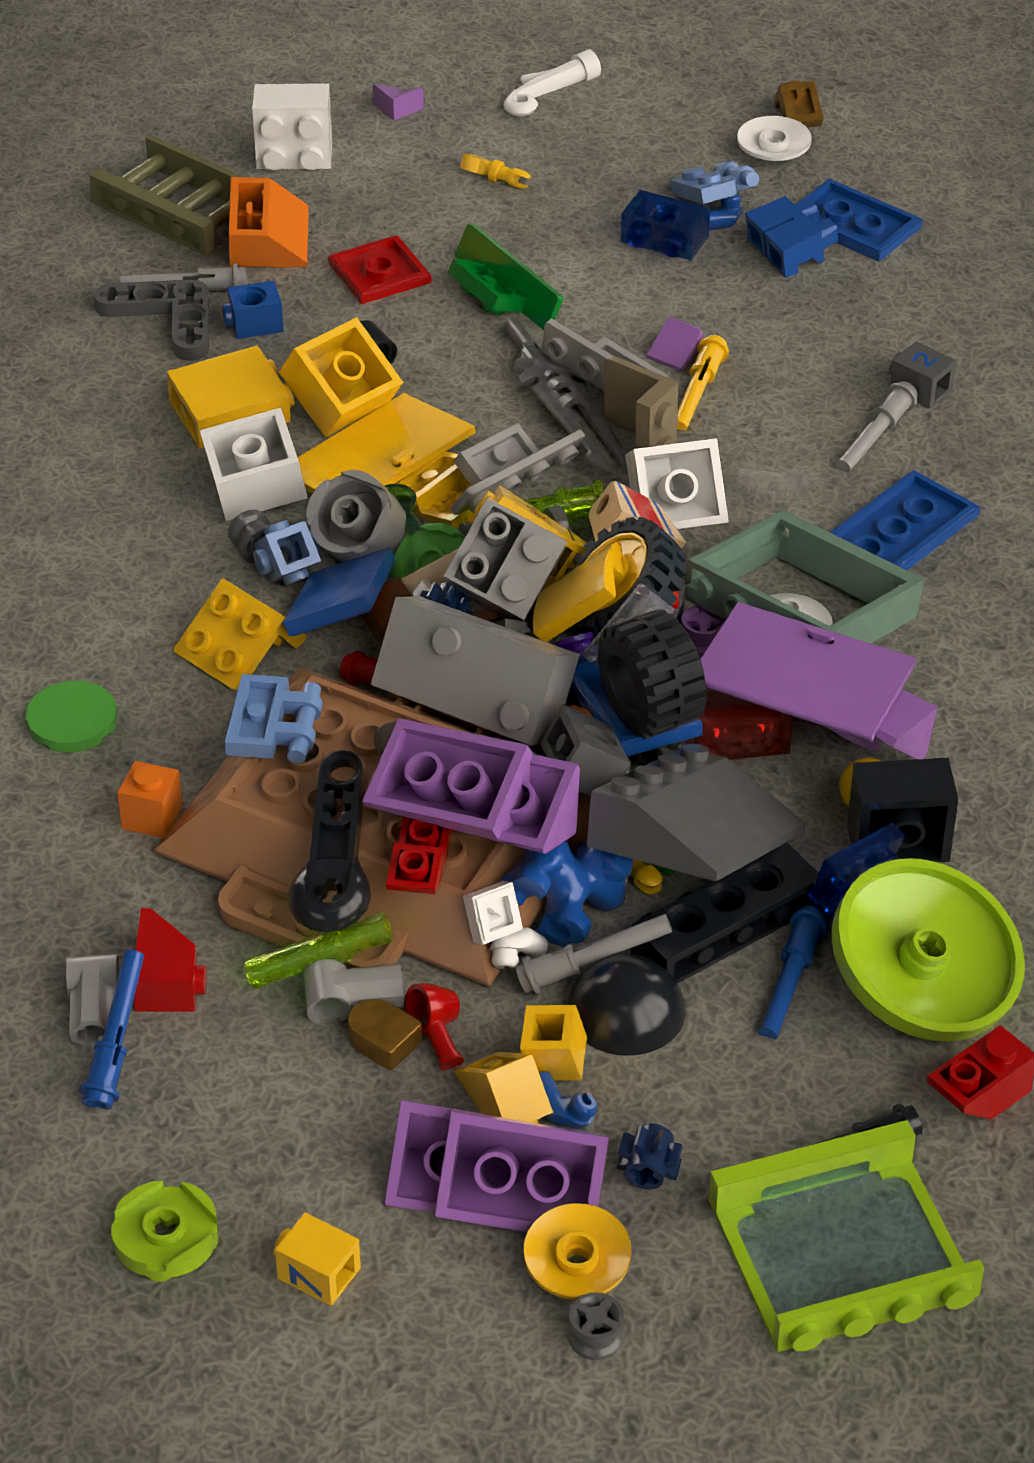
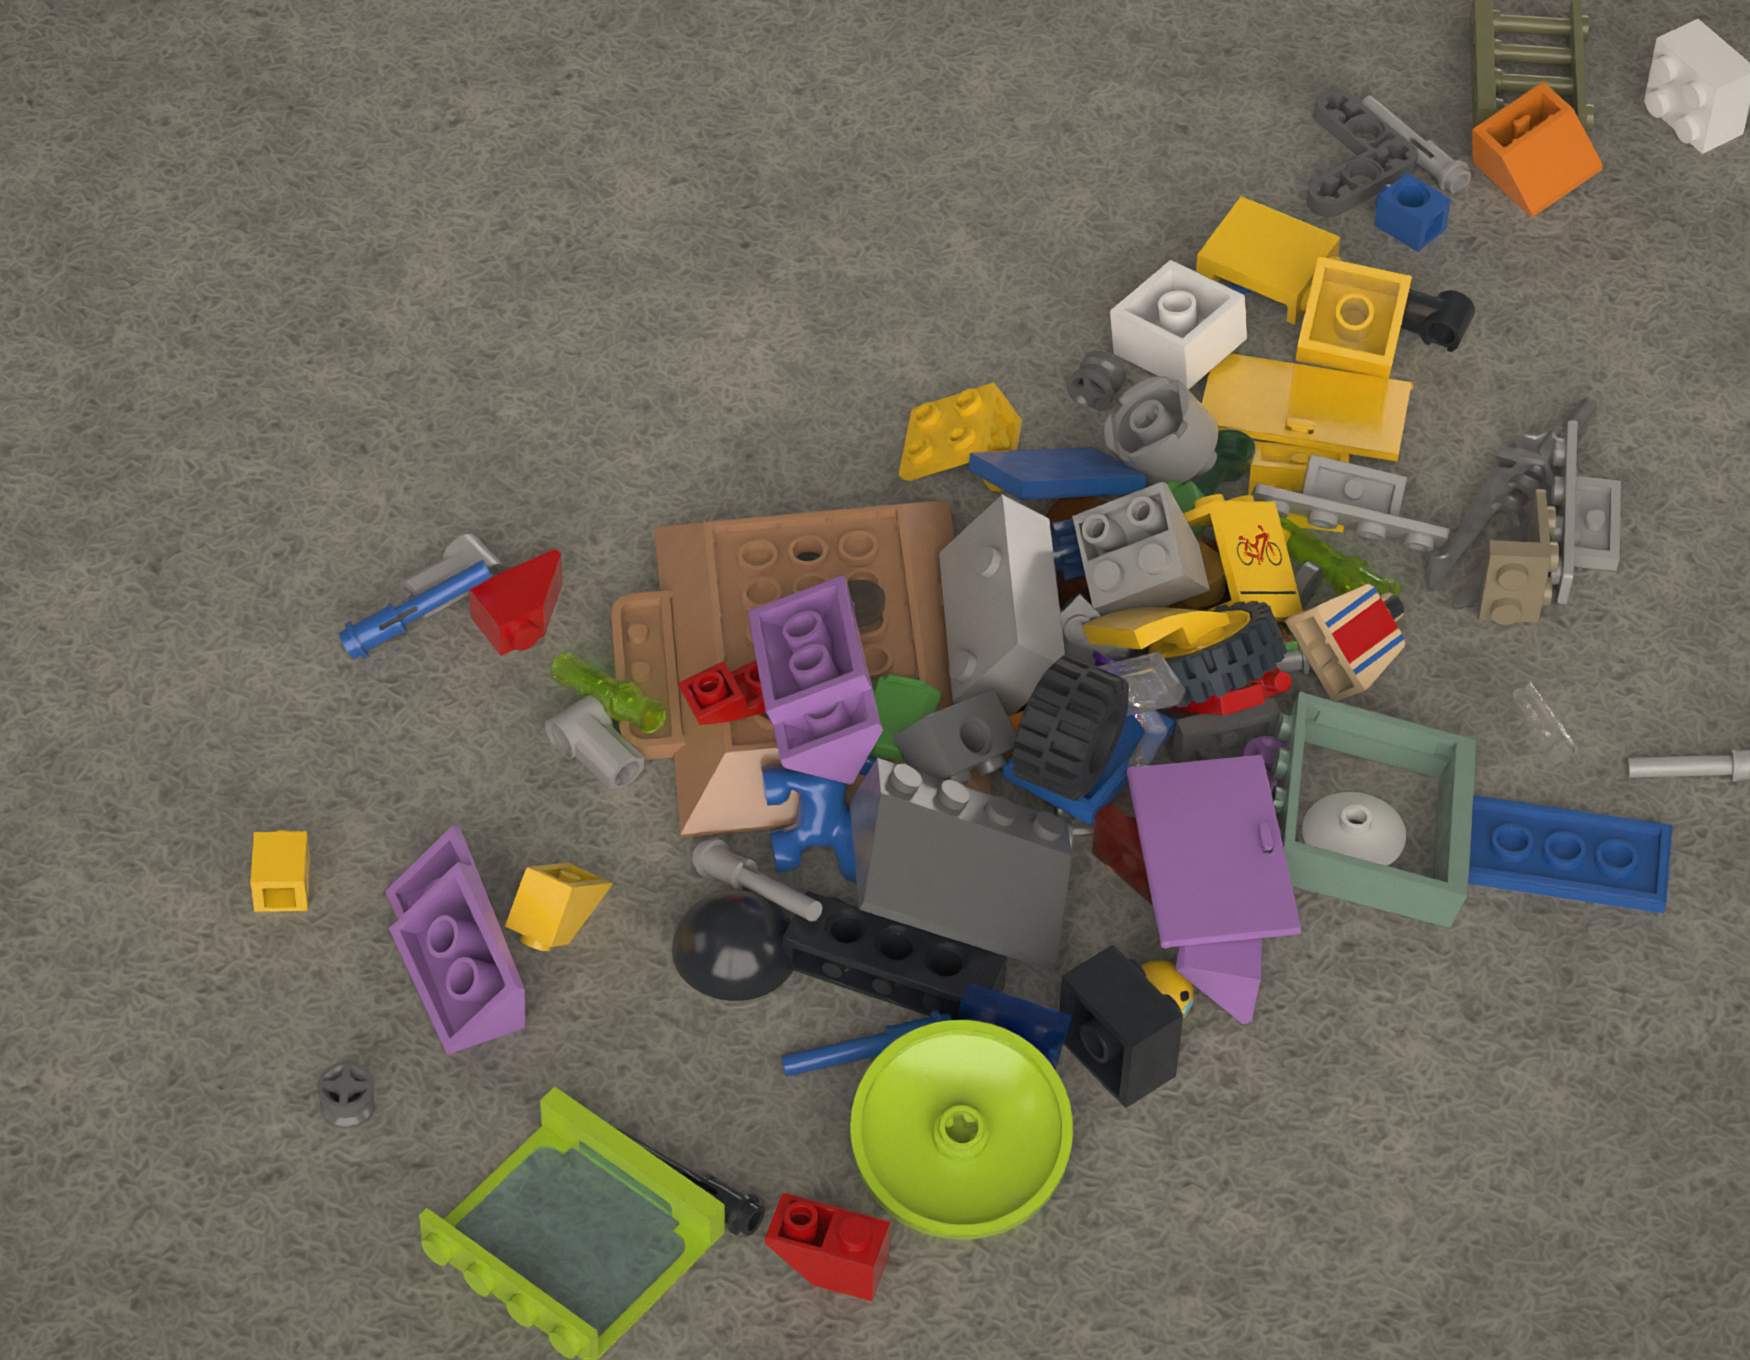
camera: 55 degrees right, 5 degrees up
(71, 716) = (769, 387): bright green tile -> none
(150, 799) = (699, 487): orange brick -> none
(171, 1254) = (252, 782): lime plate -> none
(259, 713) = (812, 490): medium blue plate -> none
(298, 545) = (1071, 406): medium blue brick -> none
(333, 853) = (696, 631): black beam -> none
(379, 269) = (1577, 269): red tile -> none
(383, 1032) = (564, 789): pearl gold piece -> none
(439, 1008) = (615, 810): red bar -> none
(492, 912) = (726, 780): white tile -> none
(501, 279) = (1635, 362): green bracket -> none
(506, 948) = (735, 826): white arm -> none
(555, 1040) = (626, 906): yellow brick -> none
(568, 1111) = (576, 953): blue arm -> none
(582, 1232) = (408, 1024): yellow dish -> none
(649, 1156) = (556, 1041): dark blue gear -> none
(676, 344) = (1682, 547): medium lavender slope -> none
(682, 481) = (1452, 645): white slope -> none
(711, 352) = (1665, 586): yellow pin -> none

